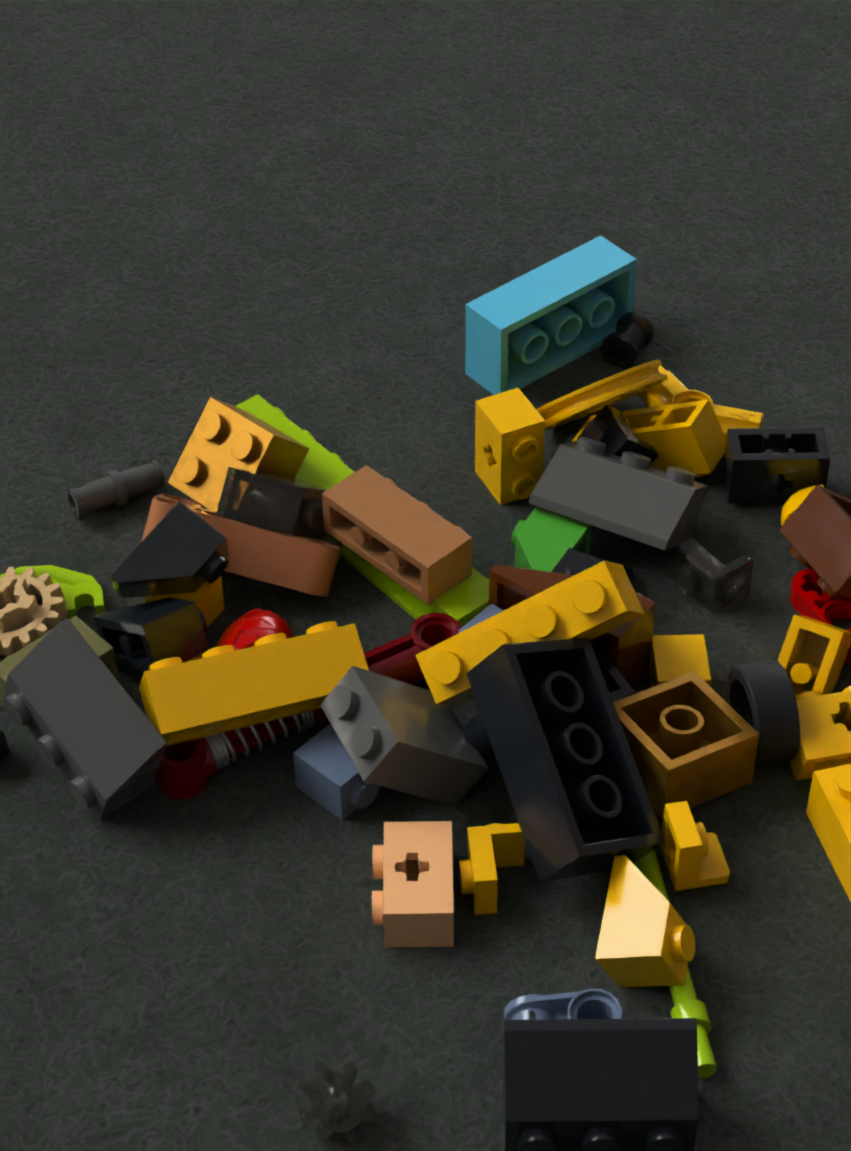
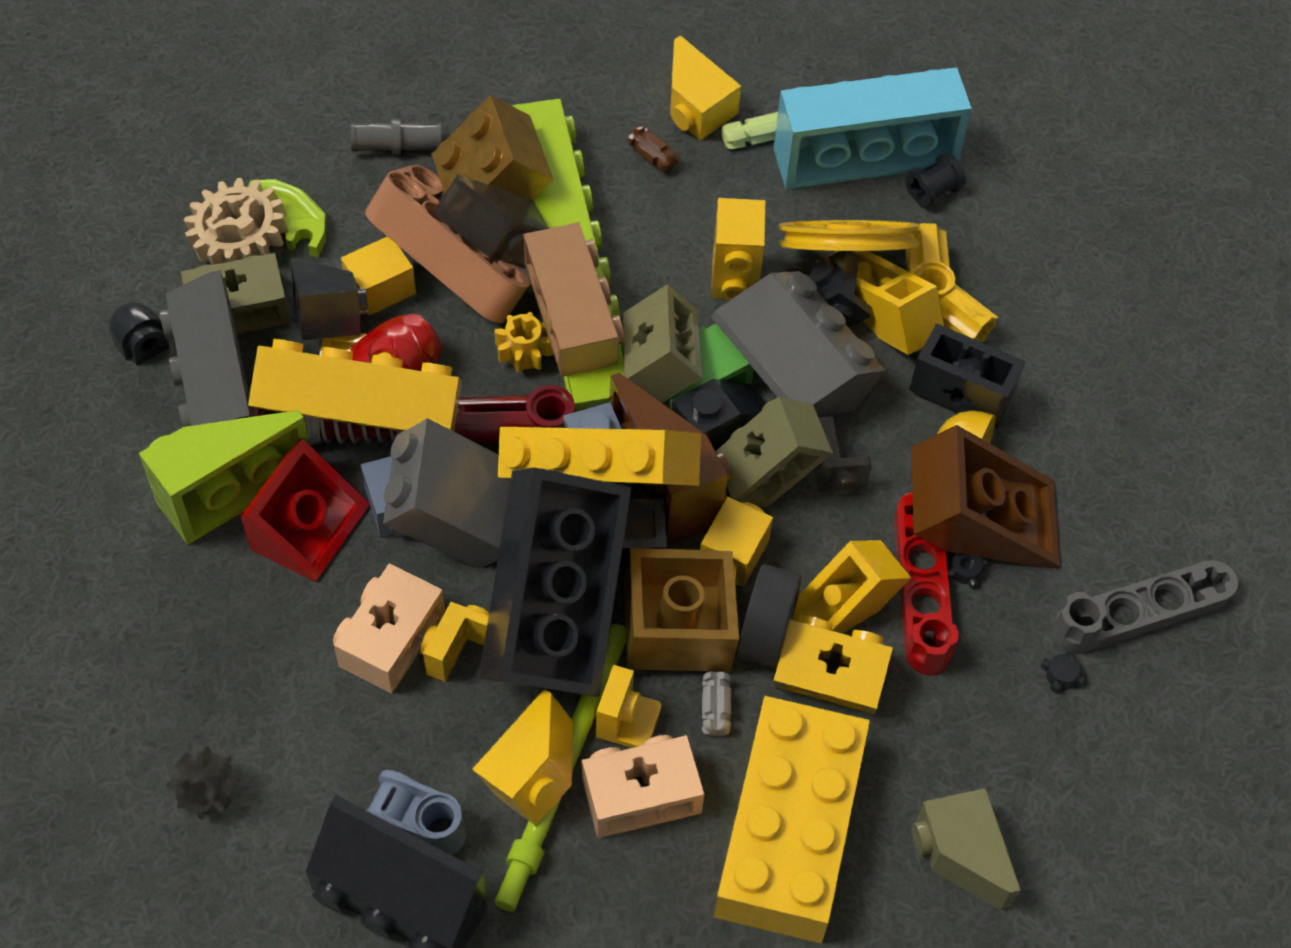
camera: 25 degrees right, 15 degrees up
(156, 815) = (217, 468): none -> lime slope
(173, 557) = (370, 237): black slope -> none
(260, 826) = (302, 513): none -> red slope
(362, 410) = (653, 149): none -> reddish brown piece
(364, 599) = (523, 342): none -> yellow gear
(371, 348) = (700, 92): none -> yellow slope
(441, 363) = (755, 131): none -> yellowish green axle
(505, 534) = (662, 344): none -> olive brick
(673, 573) = (774, 451): none -> olive brick
(753, 905) = (620, 802): none -> light nougat brick
(761, 813) = (716, 704): none -> light grey piece

